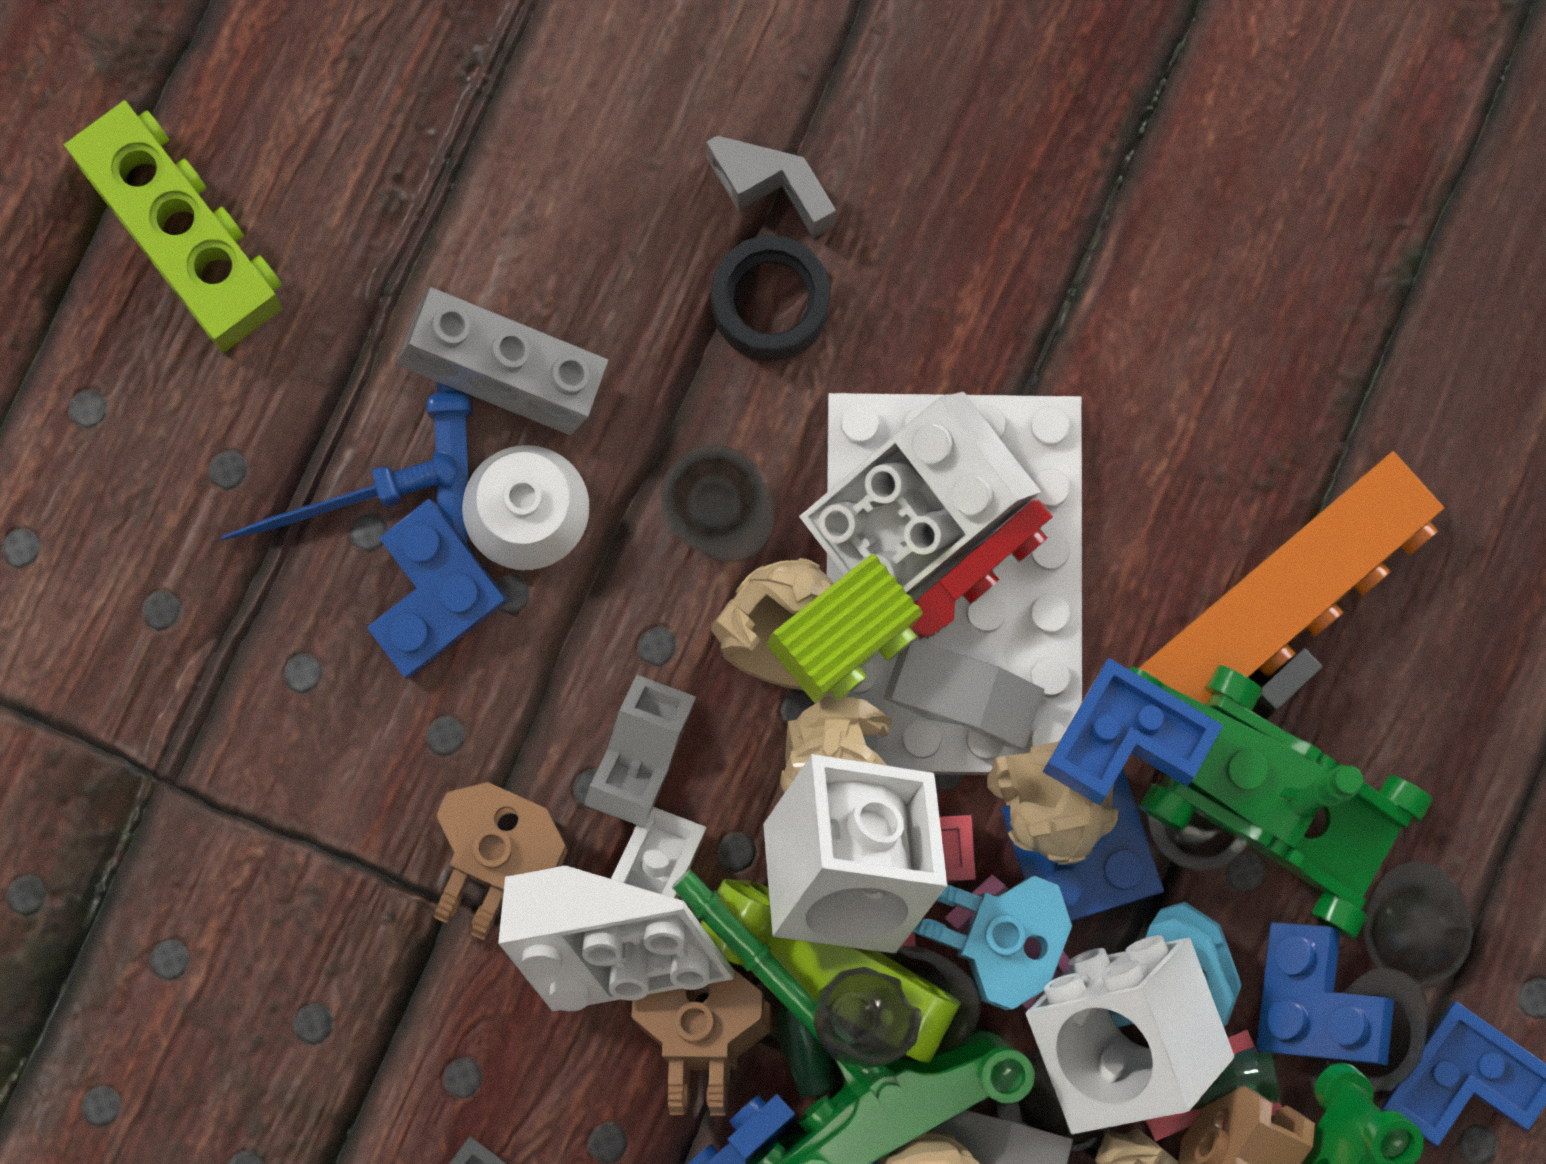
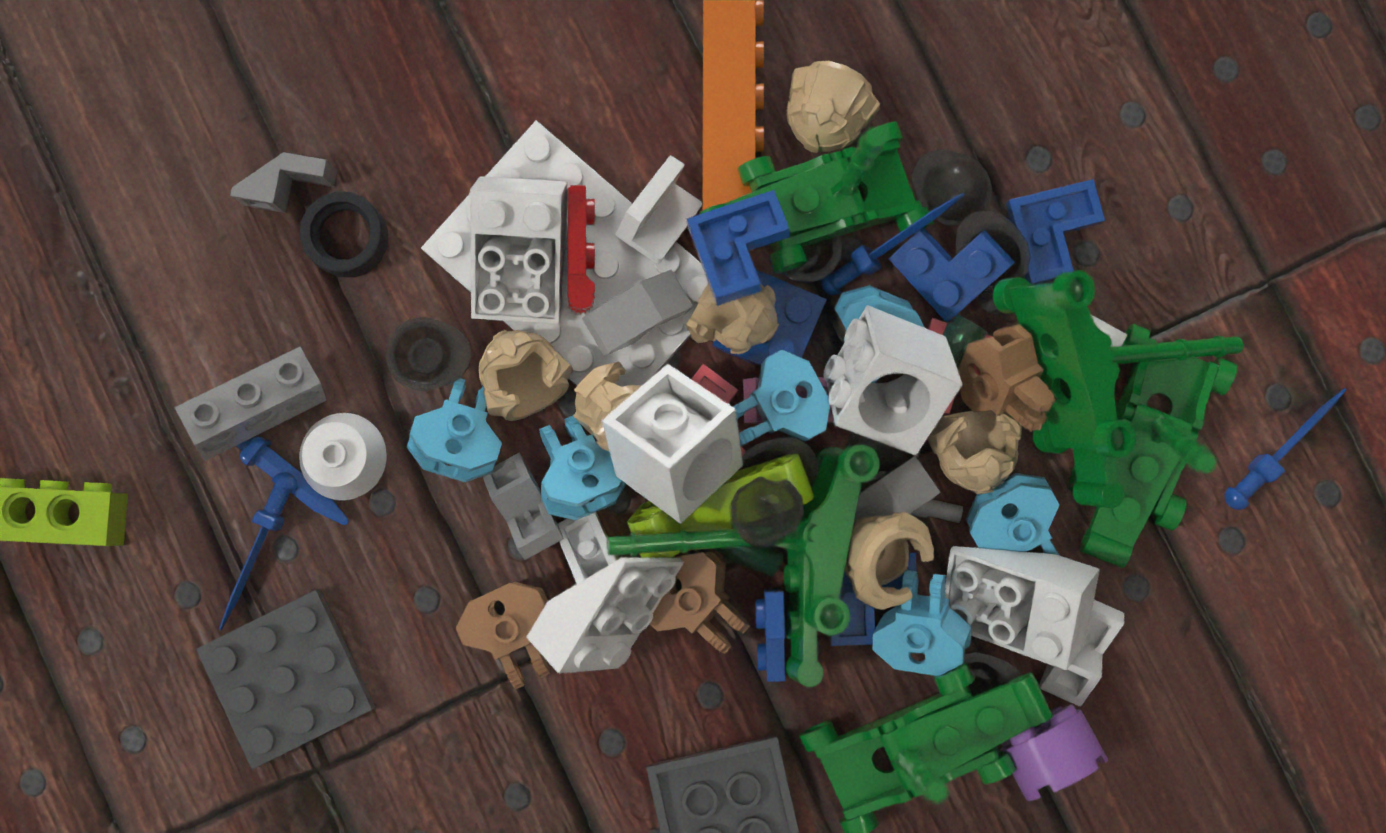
camera: 40 degrees left, 5 degrees up
(229, 656) = (285, 678): none -> dark grey plate
(450, 592) = (353, 533): blue plate -> none
(654, 612) = (455, 437): none -> medium azure hinge
(728, 782) = (577, 474): none -> medium azure hinge
(845, 630) = (551, 344): lime brick -> none
(1095, 622) = (659, 213): none -> white panel
(1248, 896) = (865, 260): none -> blue sword
(1287, 682) = (775, 141): dark grey tile -> none
(1380, 708) = (829, 105): none -> tan helmet

